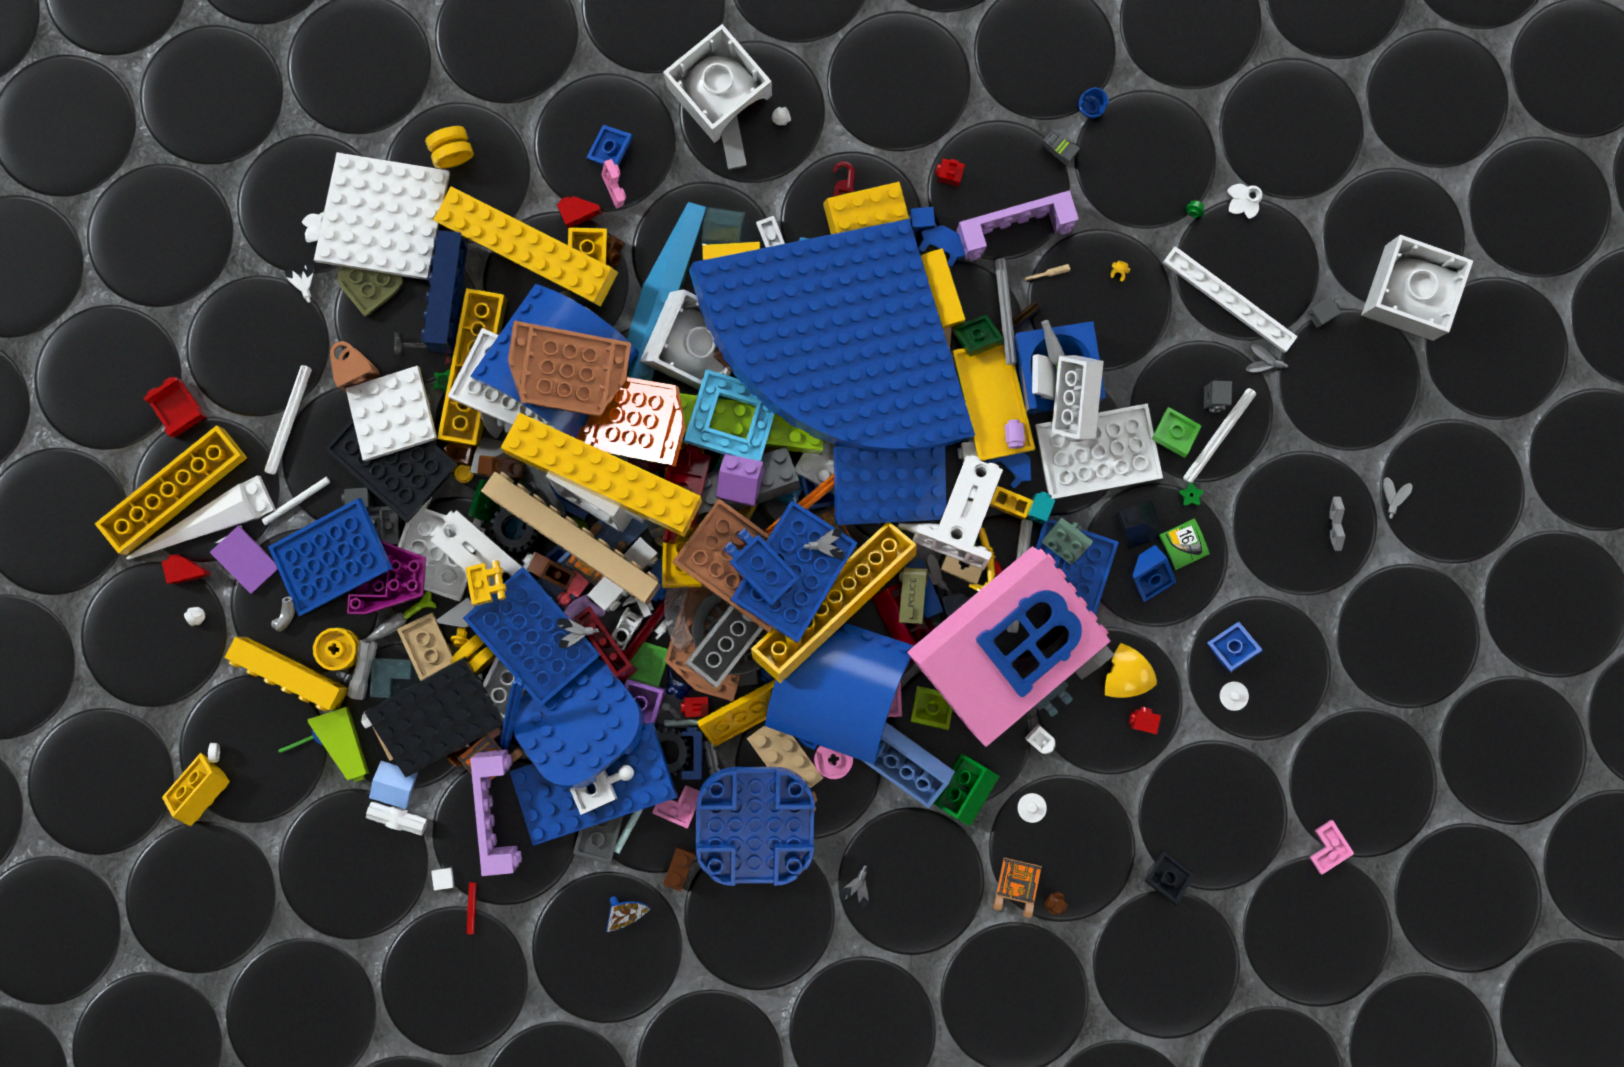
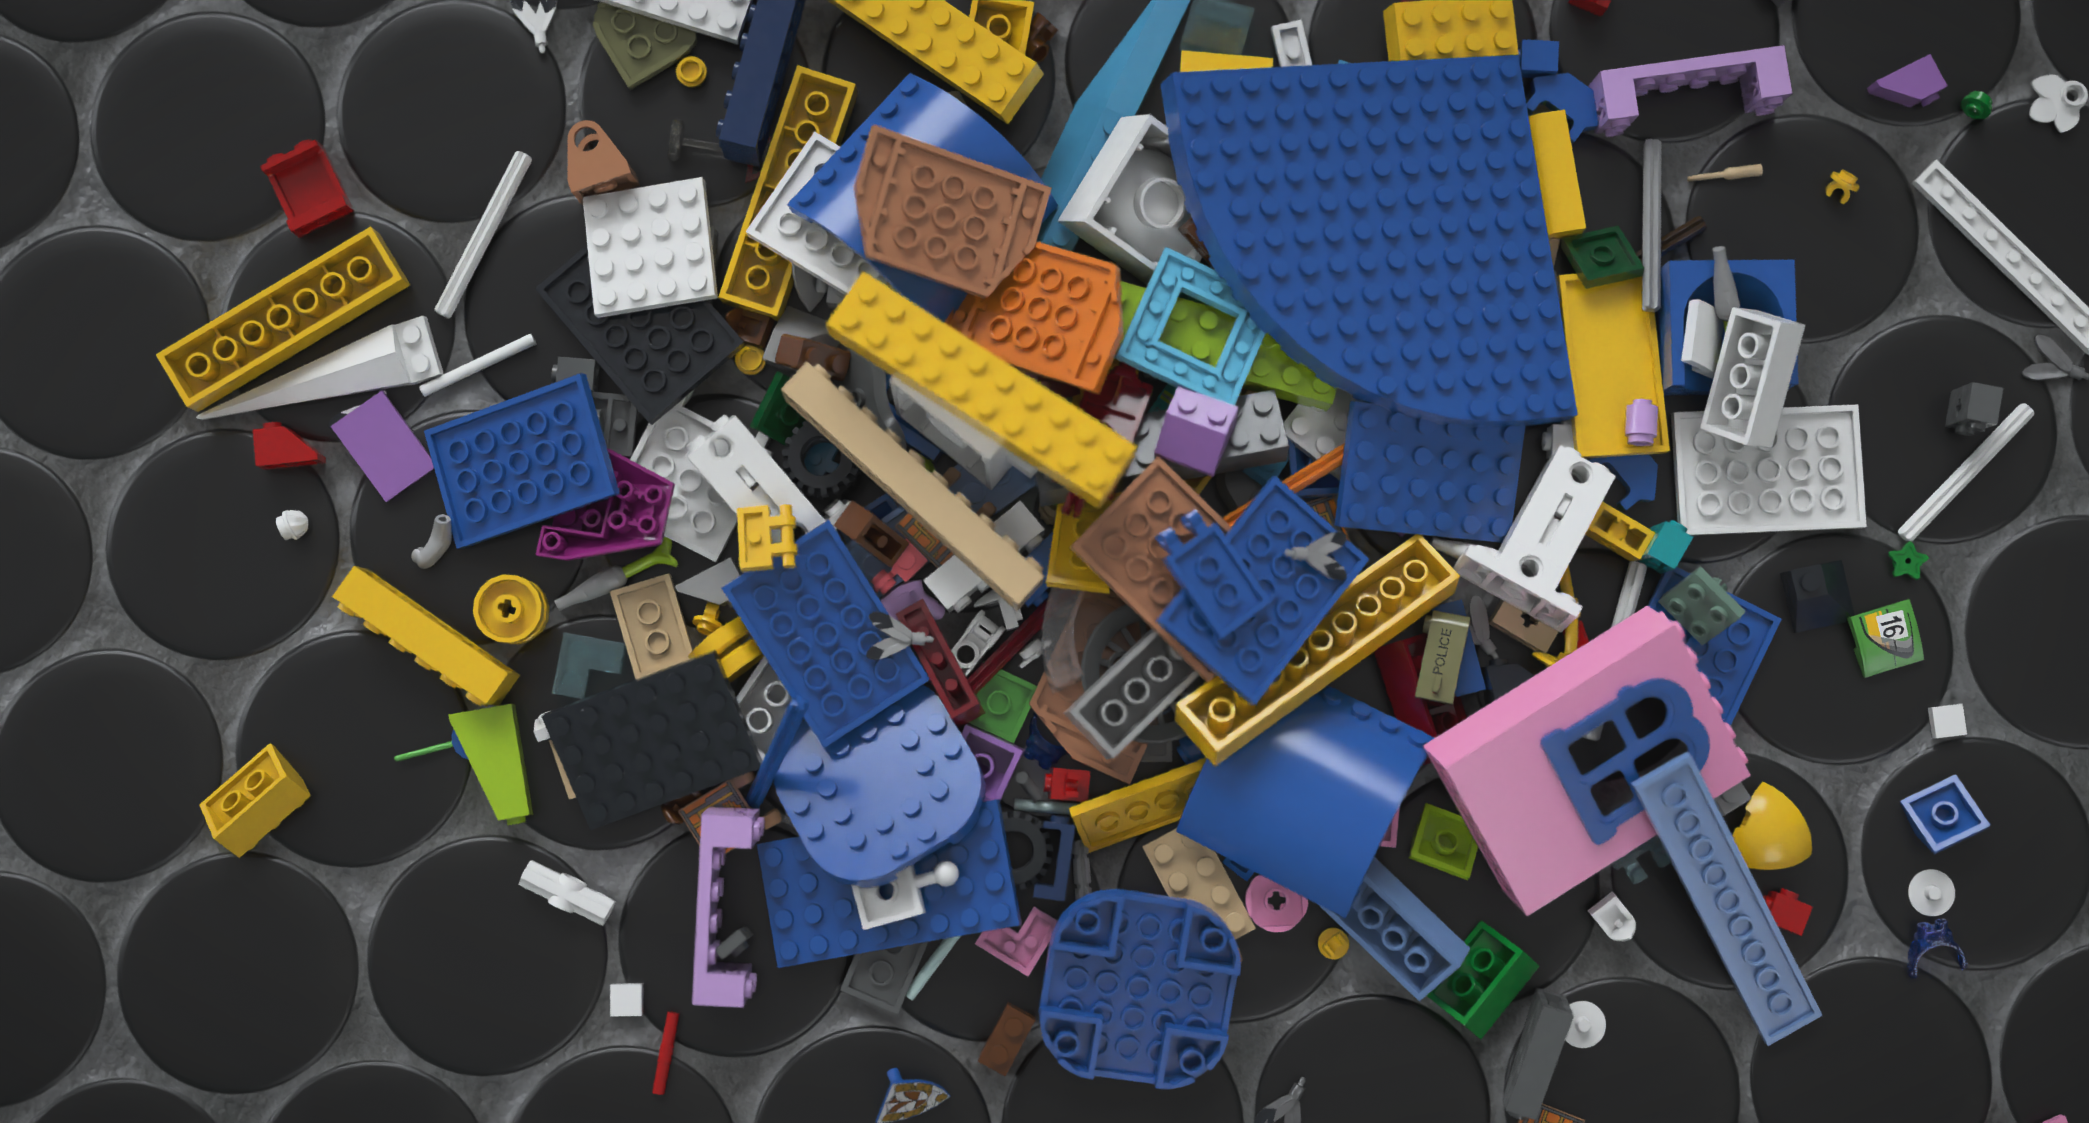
camera: 10 degrees right, 0 degrees up
(214, 752) = (292, 746): white tile -> none
(365, 655) = (554, 627): light grey axle -> none
(391, 785) = (566, 839): light blue slope -> none
(402, 300) = (691, 71): none -> yellow plate
(439, 380) = (733, 202): green plate -> none
(503, 834) = (735, 943): none -> dark grey plate
(872, 780) = (1333, 943): none -> yellow plate
(1005, 830) = (1537, 1054): none -> dark grey slope
(1106, 718) = (1726, 898): none -> medium blue plate
(1152, 573) = (1830, 677): blue slope -> none
(1153, 202) = (1911, 84): none -> medium lavender slope
(1176, 432) = (1898, 457): bright green plate -> none
(1229, 589) = (1947, 721): none -> white tile
(1235, 723) = (1928, 937): none -> clear blue helmet

